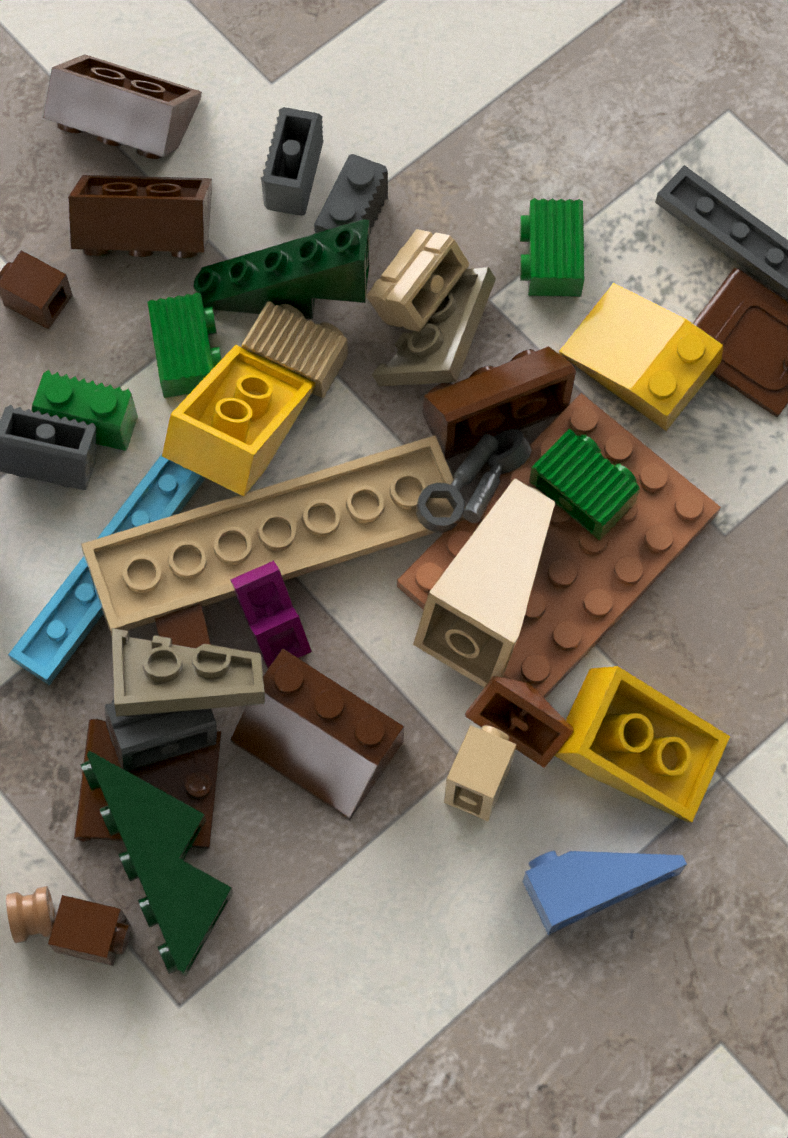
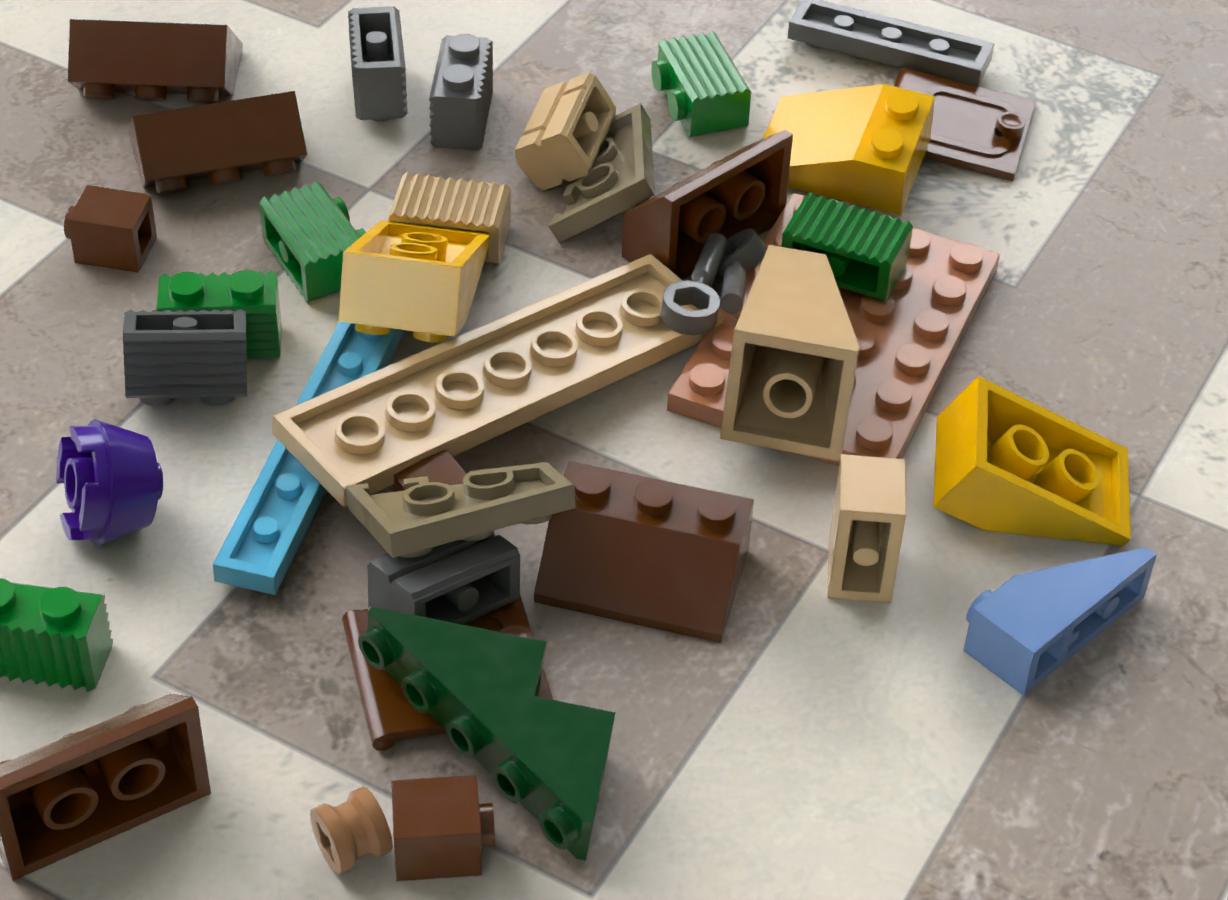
camera: 20 degrees left, 25 degrees down
(270, 613) = (523, 430): magenta slope -> none
(292, 273) = (456, 119): dark green slope -> none
(523, 716) = (925, 470): dark orange slope -> none

